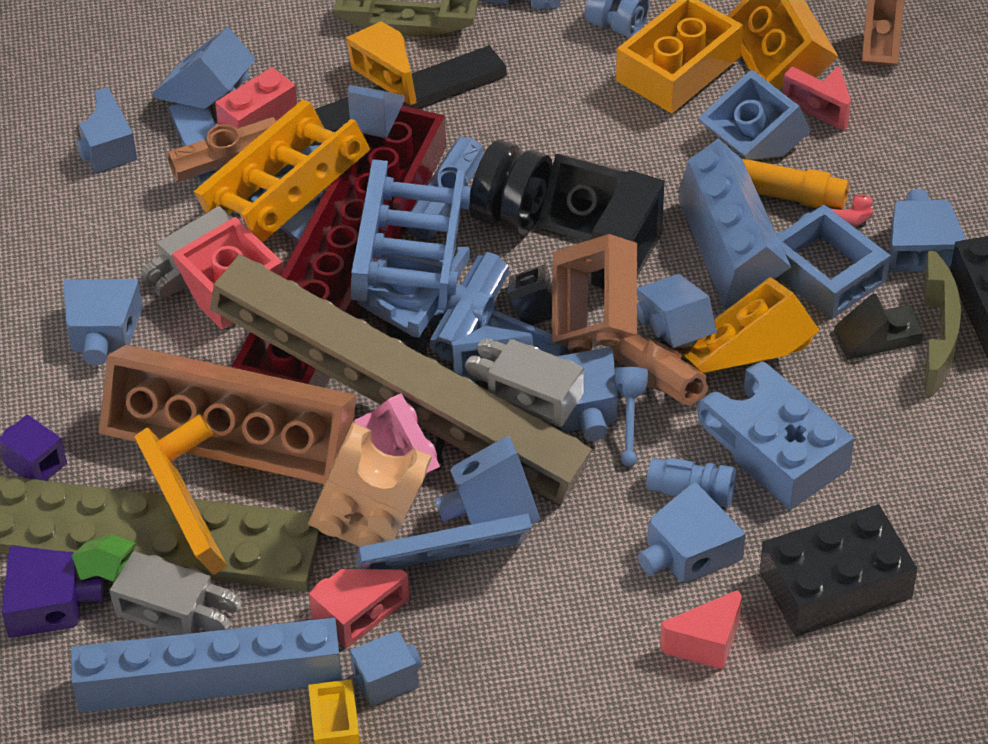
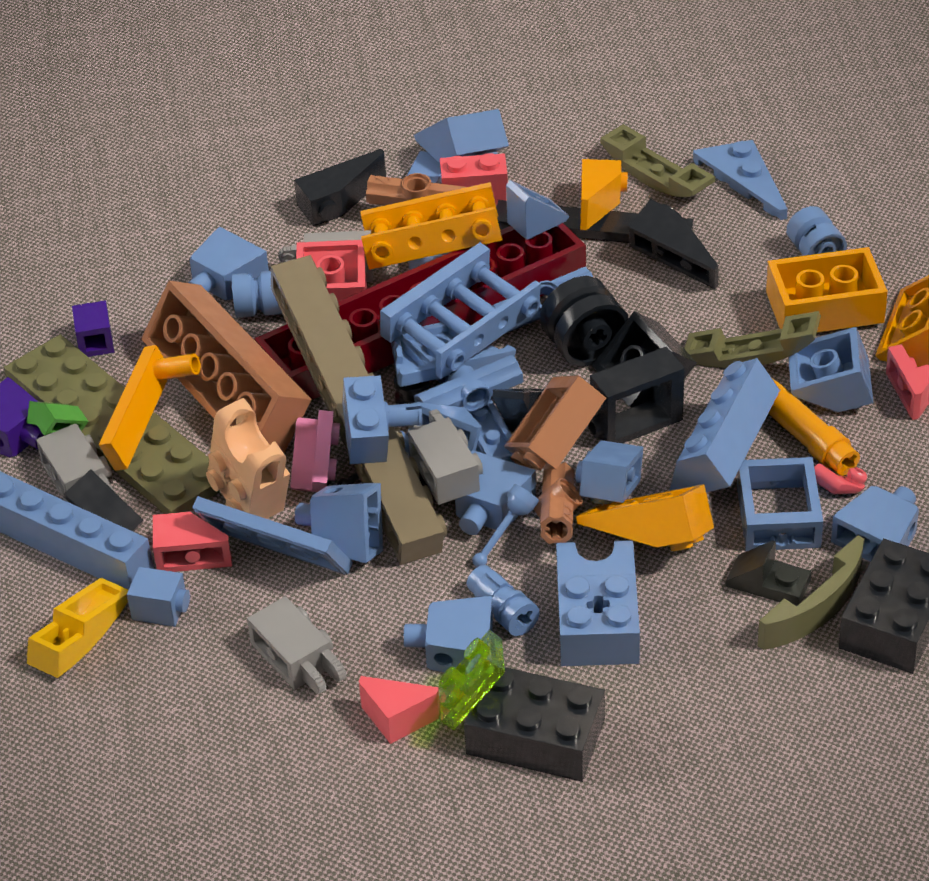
camera: 40 degrees right, 5 degrees down
(106, 135) = (357, 140): medium blue arch -> none
(125, 190) = (337, 188): none -> black slope
(170, 323) = (253, 295): none -> medium blue wheel
(233, 609) = (98, 498): none -> black tile
(449, 381) = (369, 418): none -> medium blue brick
(501, 74) = (669, 239): none -> black slope
(563, 635) = (294, 645): none -> light grey hinge
(673, 131) = (713, 349): none -> olive slope
(764, 564) = (470, 681): none -> clear neon green plate

